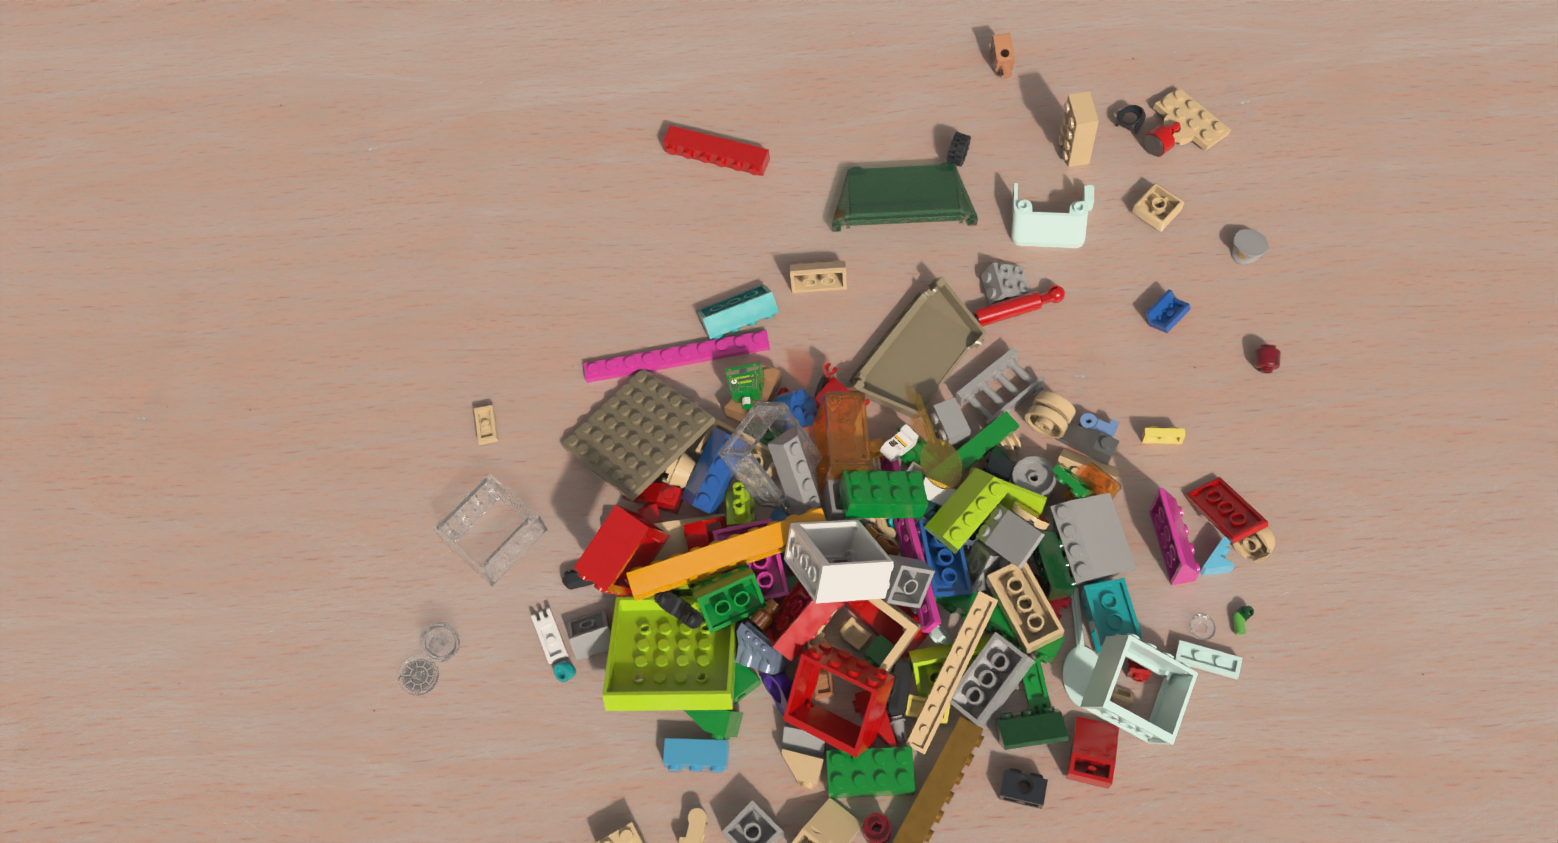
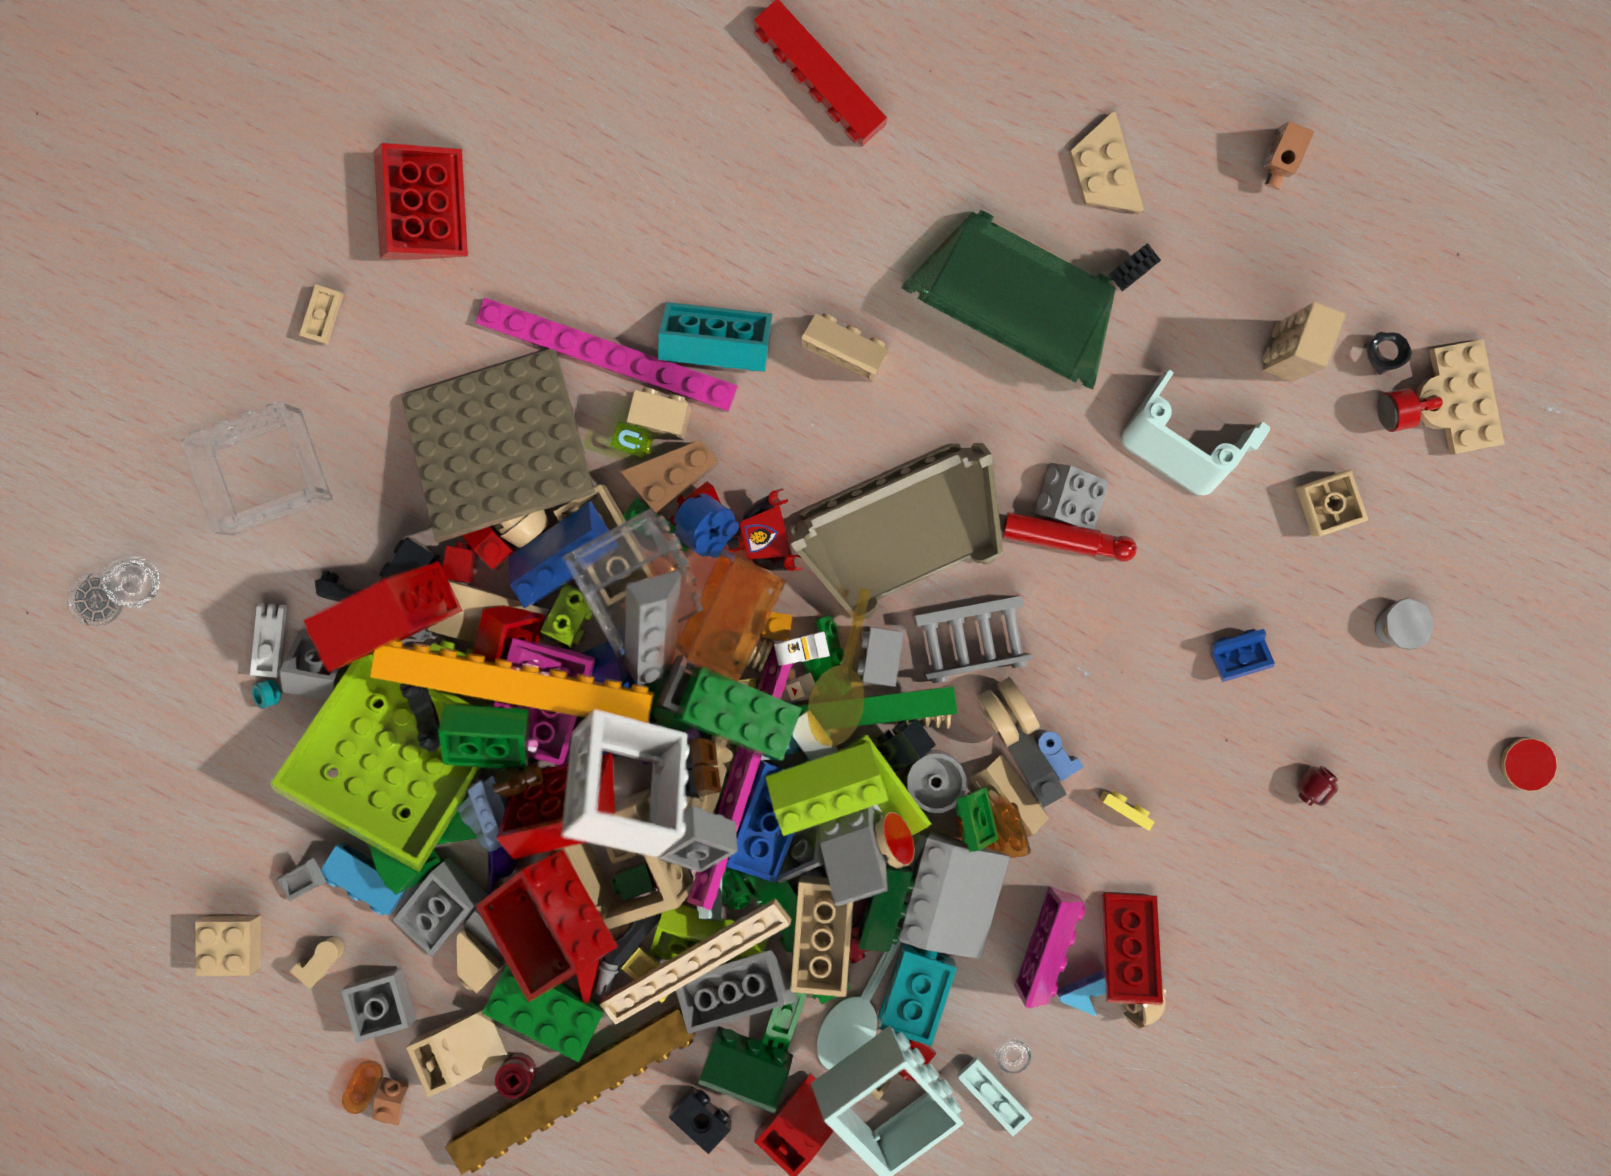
camera: 20 degrees right, 25 degrees up
(515, 333) = (420, 202): none -> red slope
(652, 777) = (301, 879): none -> light grey tile
(718, 392) = (631, 440): none -> clear neon green brick
(725, 358) = (660, 414): none -> tan brick
(746, 383) = (660, 462): green torso -> none
(757, 746) = (439, 906): none -> light grey slope
(908, 116) = (1105, 168): none -> tan wing
(950, 621) = (735, 890): none -> green bracket
(1240, 618) = (1062, 1069): arm -> none
(1381, 281) = (1529, 764): none -> red tile

